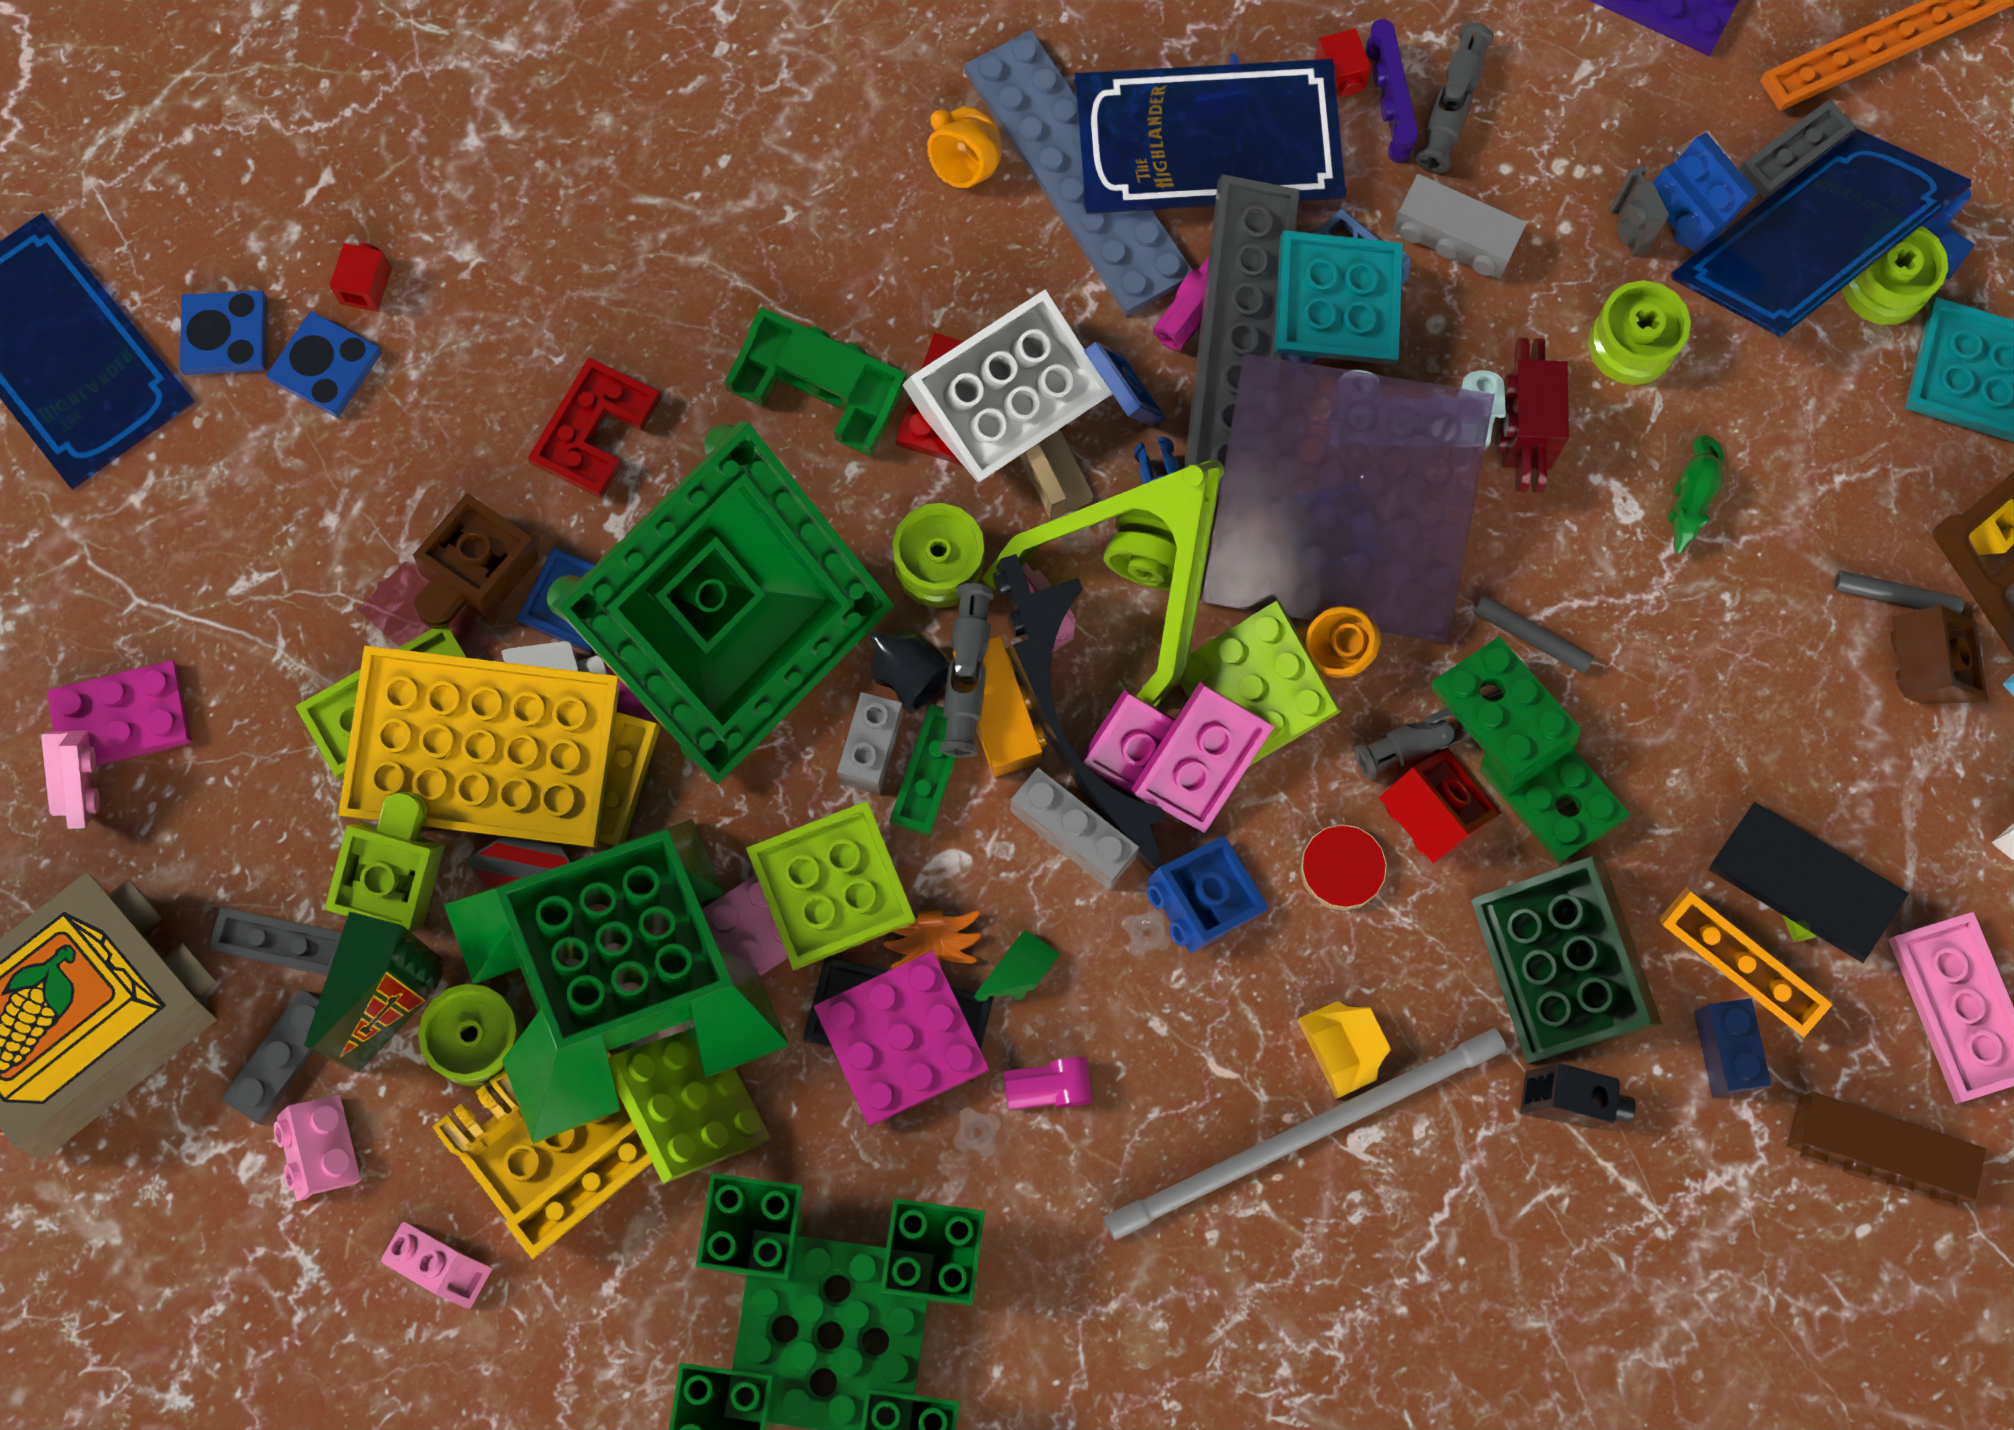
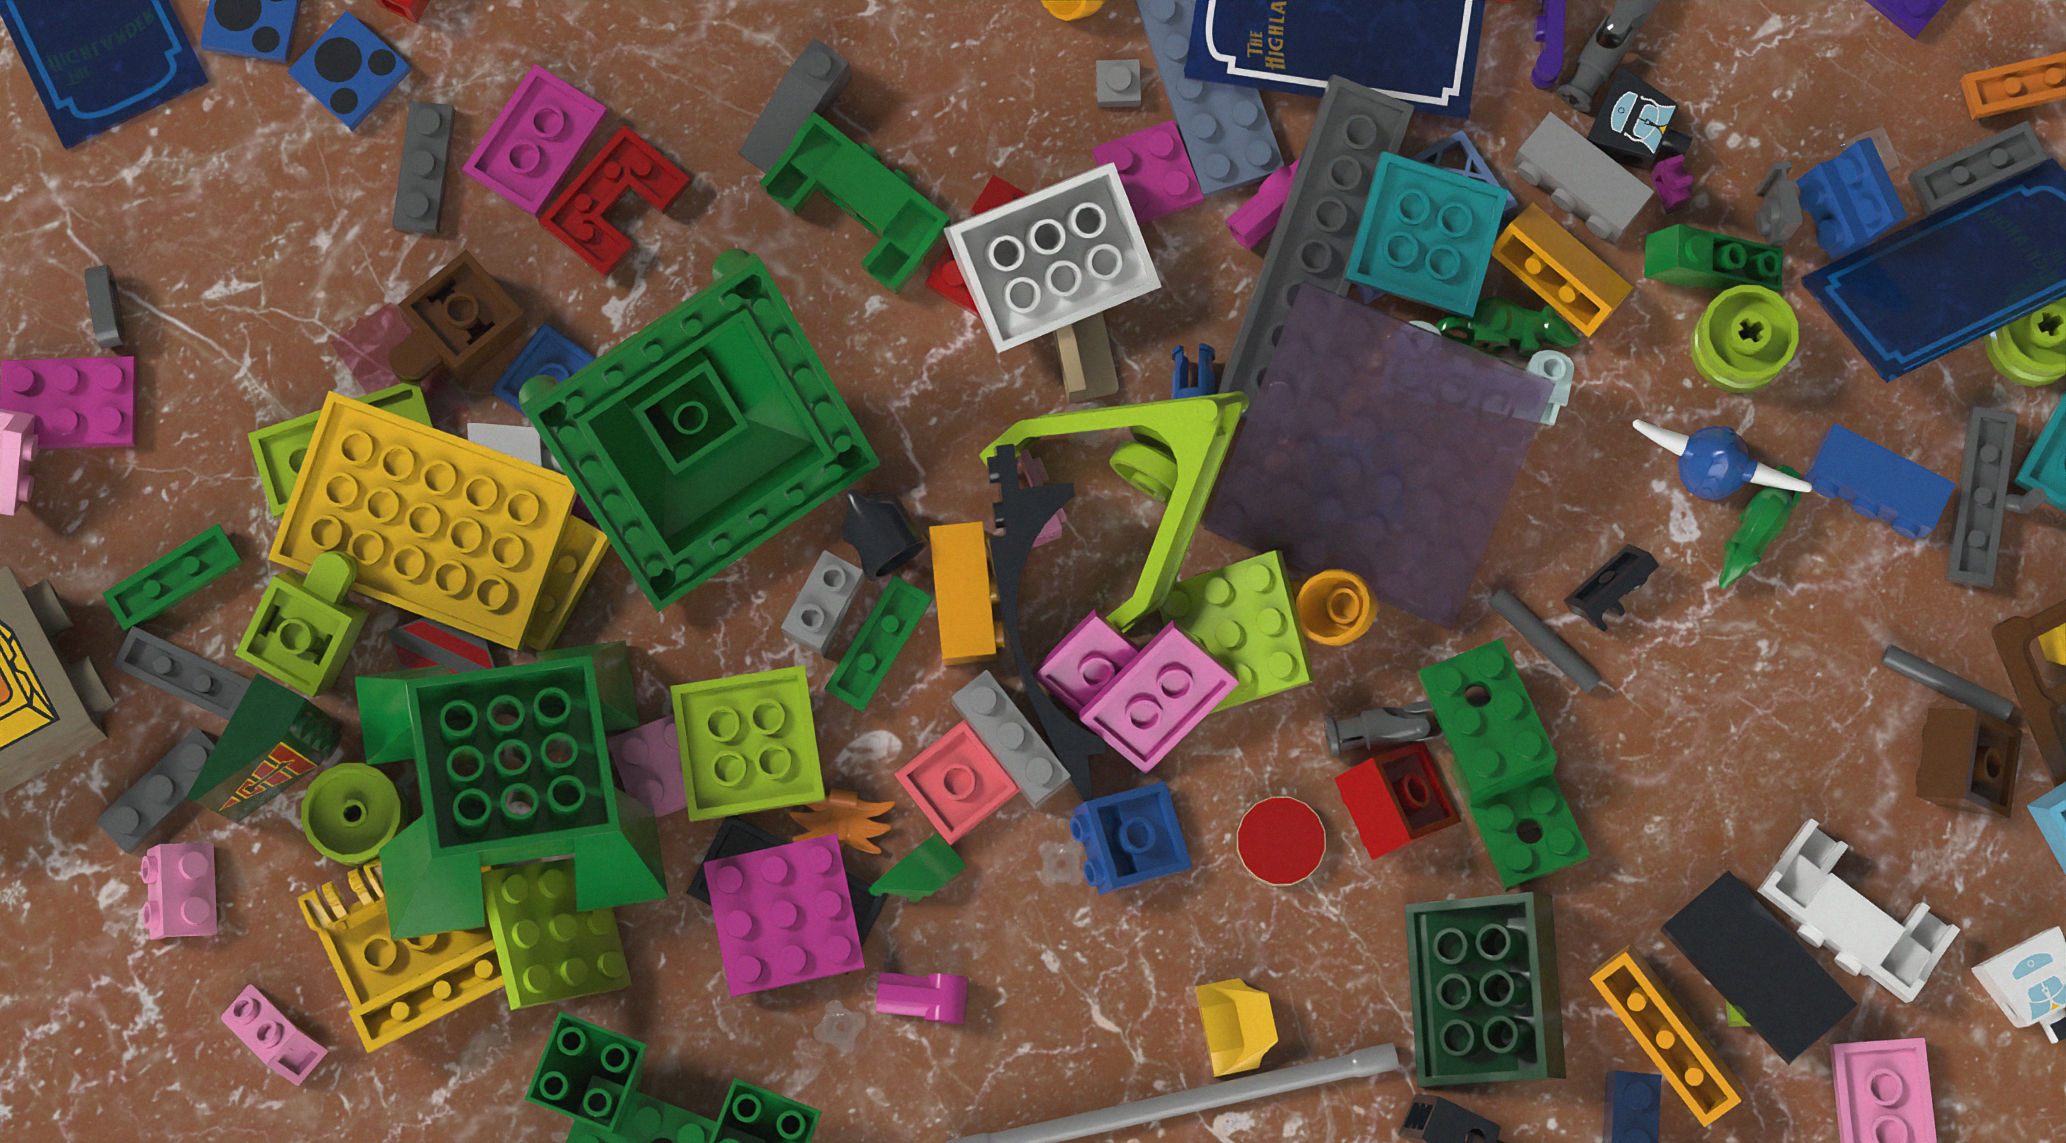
camera: 15 degrees right, 5 degrees up
(136, 620) = (105, 306): none -> dark grey beam
(250, 855) = (173, 578): none -> green plate
(411, 435) = (424, 167): none -> dark grey plate
(509, 389) = (535, 141): none -> dark pink plate
(751, 285) = (806, 88): none -> dark grey slope
(934, 532) = (943, 446): lime wheel -> none
(970, 643) = (946, 527): dark grey piece -> none
(1026, 232) = (1118, 83): none -> light grey plate
(1032, 879) = (957, 782): none -> coral plate
(1081, 298) = (1153, 171): none -> dark pink plate
(1125, 384) = (1178, 279): blue tile -> none
(1434, 365) = (1504, 323): none -> green animal
(1462, 307) = (1560, 269): none -> light orange brick
(1494, 169) = (1637, 123): none -> black torso
(1535, 415) = (1604, 406): dark red brick -> none
(1539, 213) = (1672, 183): none -> magenta plate
(1579, 569) = (1617, 577): none -> black plate
(1585, 272) = (1710, 259): none -> green slope
(1645, 444) = (1717, 462): none -> blue helmet
(1790, 431) = (1878, 482): none -> blue brick
(1877, 823) = (1848, 923): none -> white bracket
(1884, 427) = (1984, 497): none -> dark grey plate

